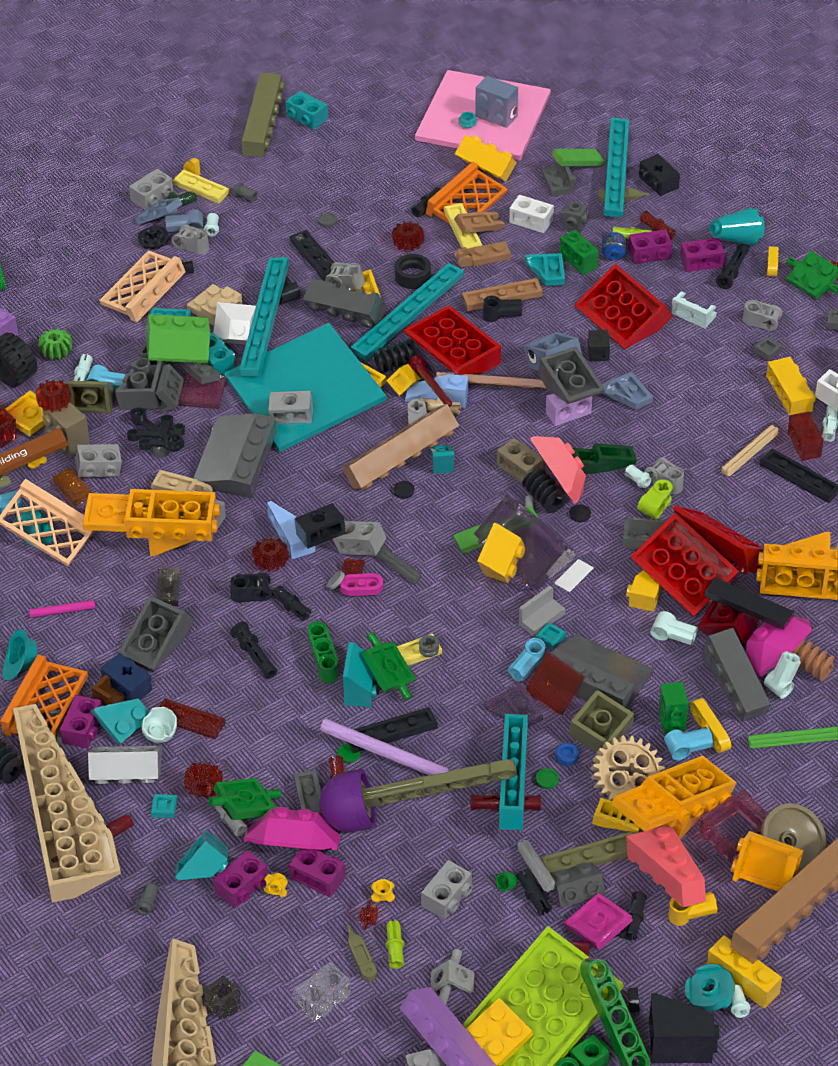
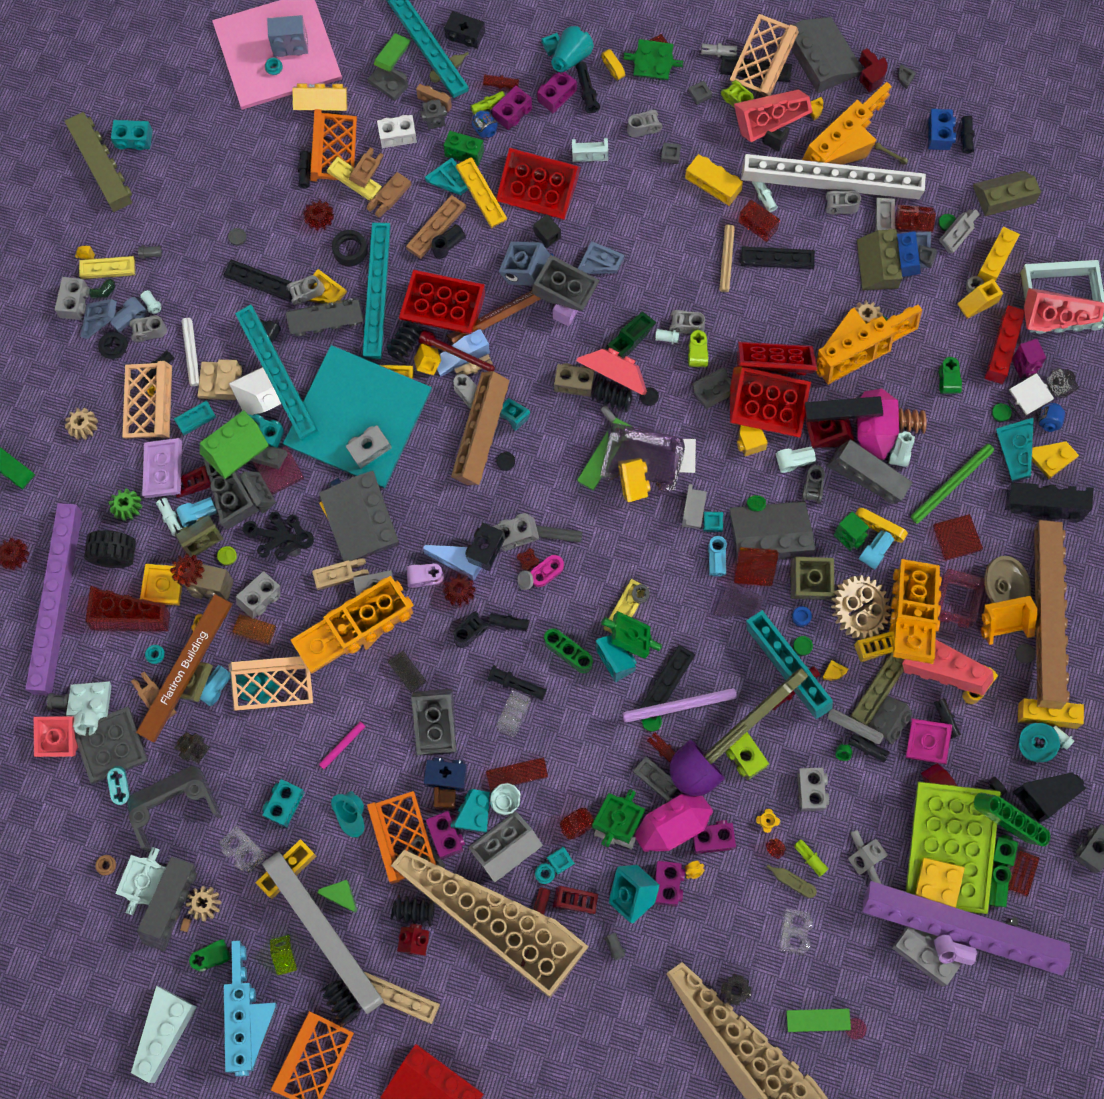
camera: 35 degrees left, 25 degrees up
(75, 273) = (74, 423): none -> tan gear
(102, 425) = (227, 555): none -> lime piece
(108, 335) = (162, 468): none -> lavender plate
(123, 359) = (204, 483): none -> dark red slope
(140, 800) = (542, 867): none -> teal plate
(142, 826) = (574, 907): none -> dark red slope
(211, 273) = (190, 350): none -> white axle
(228, 668) = (513, 713): none -> clear brick
(250, 526) = (422, 575): none -> lavender piece
(409, 838) = (755, 764): none -> lime brick
(558, 815) = (834, 671): none -> yellow tile
(564, 289) = (481, 192): none -> yellow tile
(593, 210) = (427, 93): none -> medium nougat plate
(605, 643) = (756, 503): none -> green piece
(672, 657) = (813, 487): none -> dark grey piece
(781, 780) = (957, 537): none -> clear red tile

